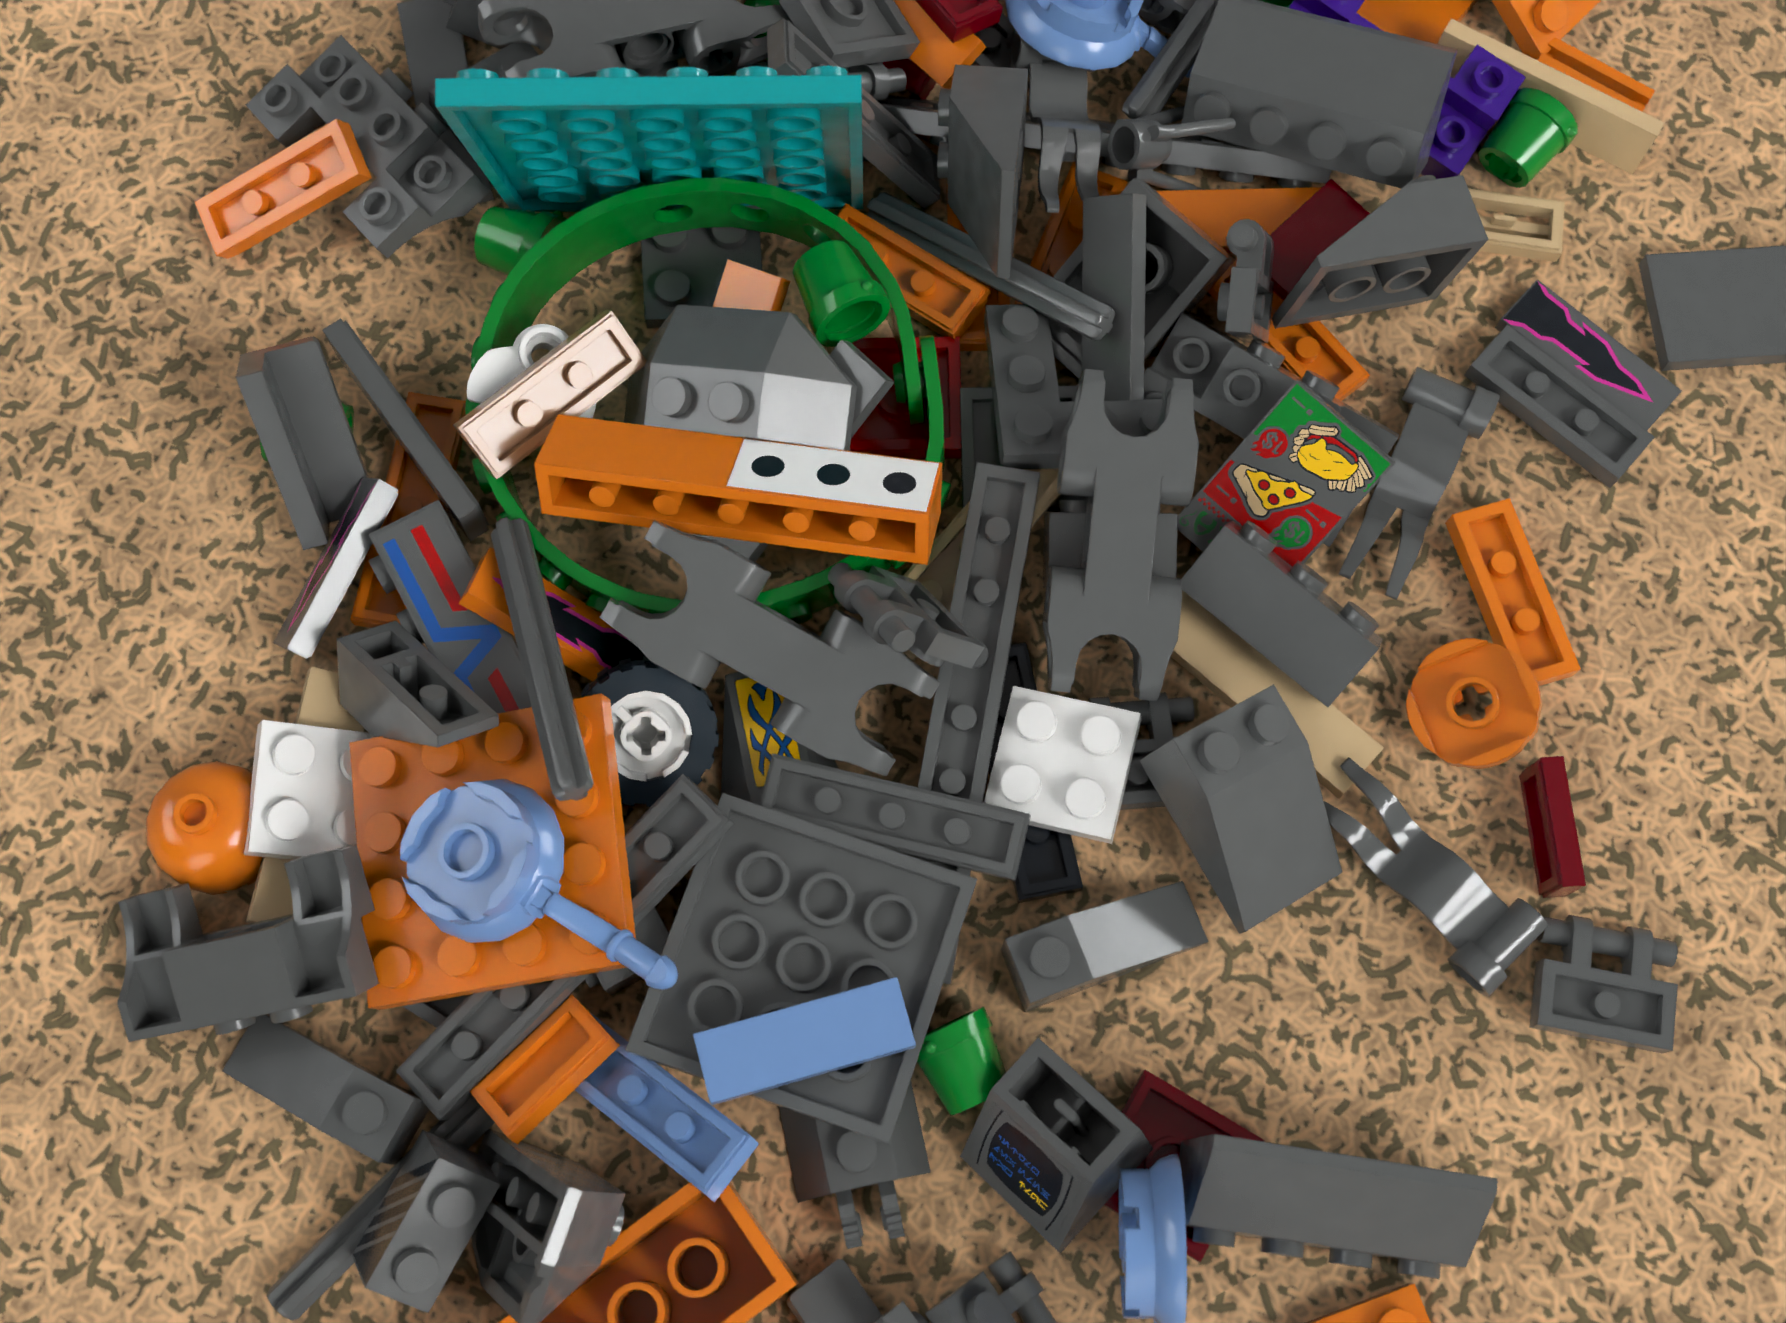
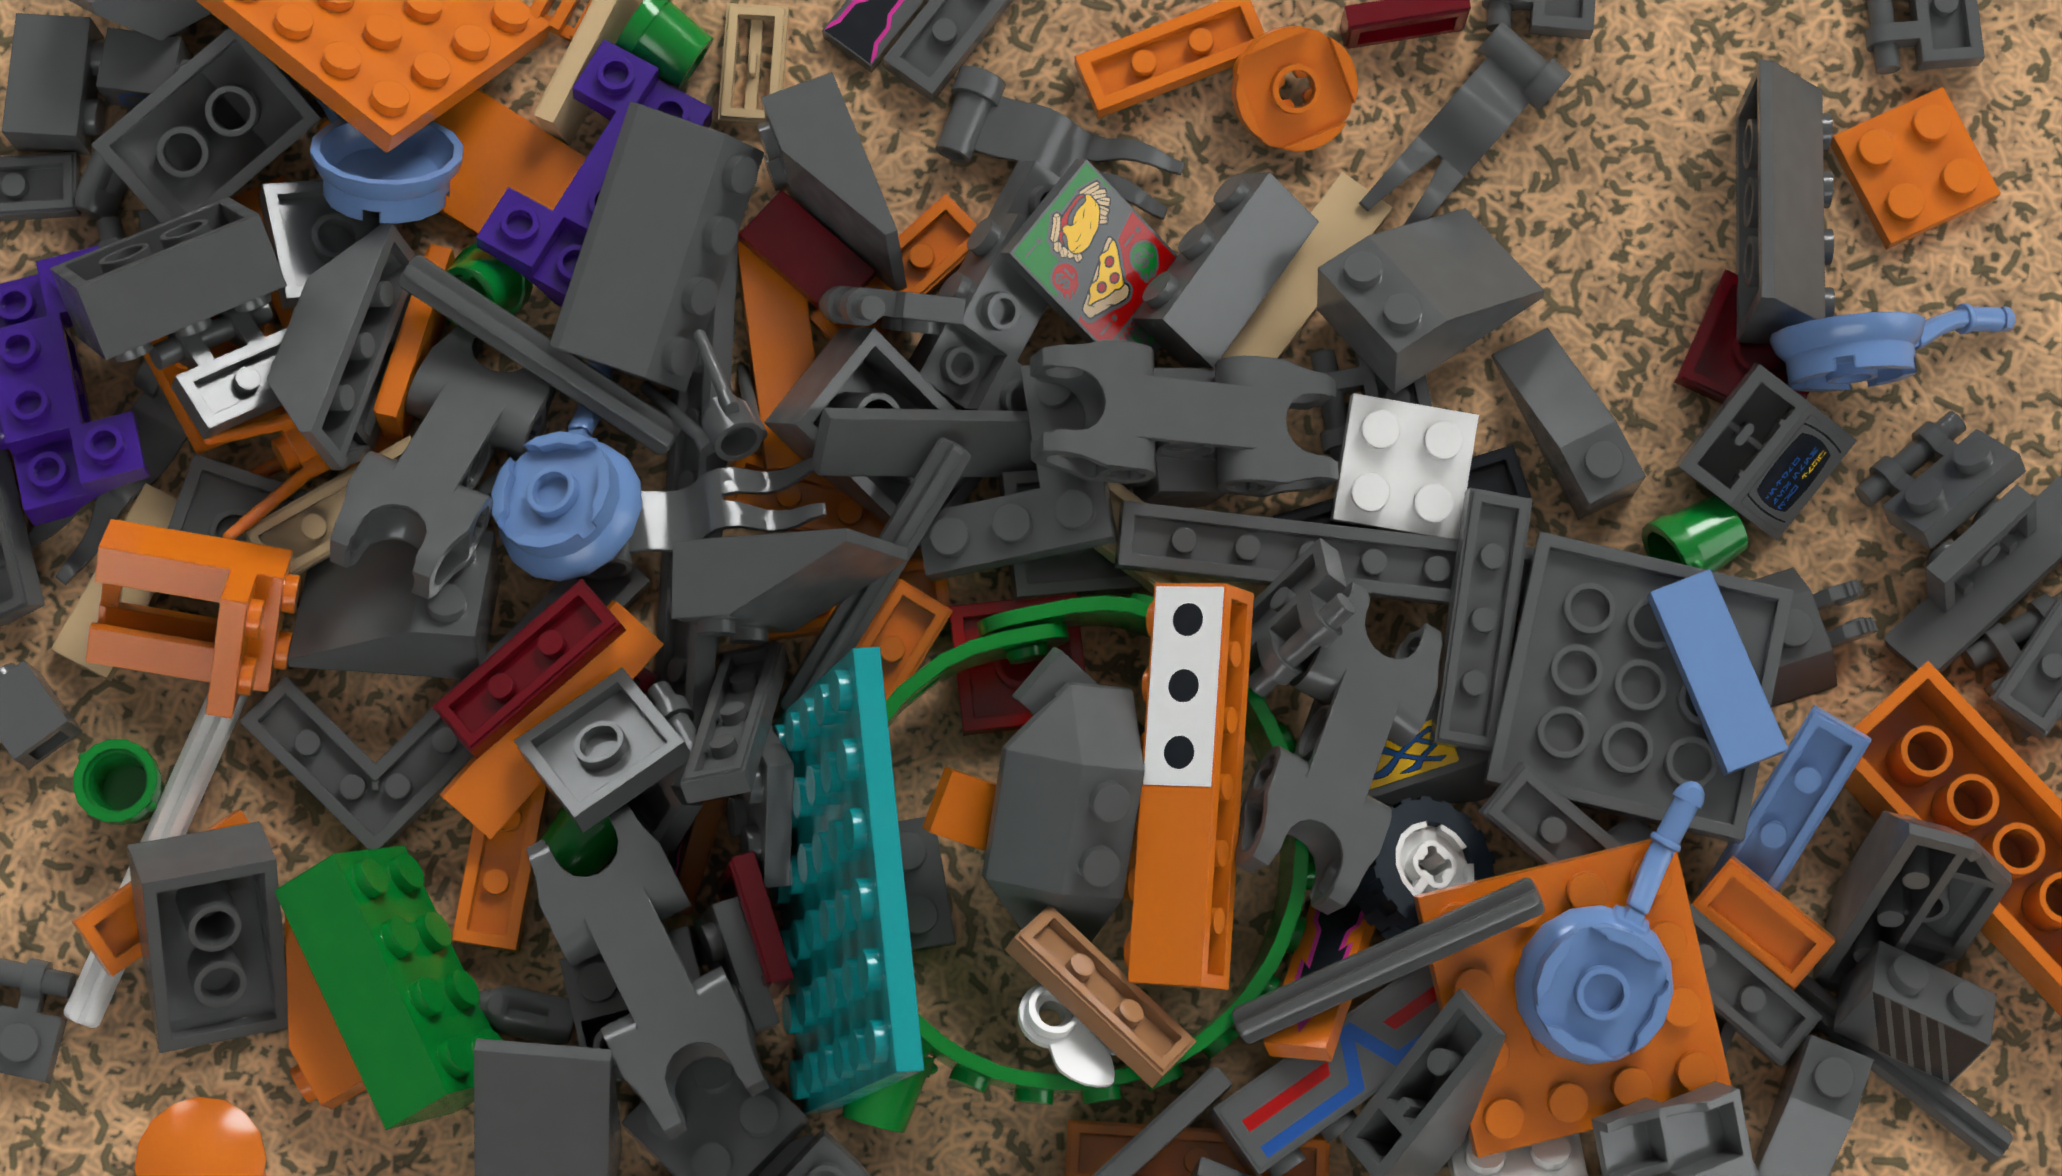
camera: 95 degrees left, 5 degrees up
(839, 294) = (963, 710): green piece -> none

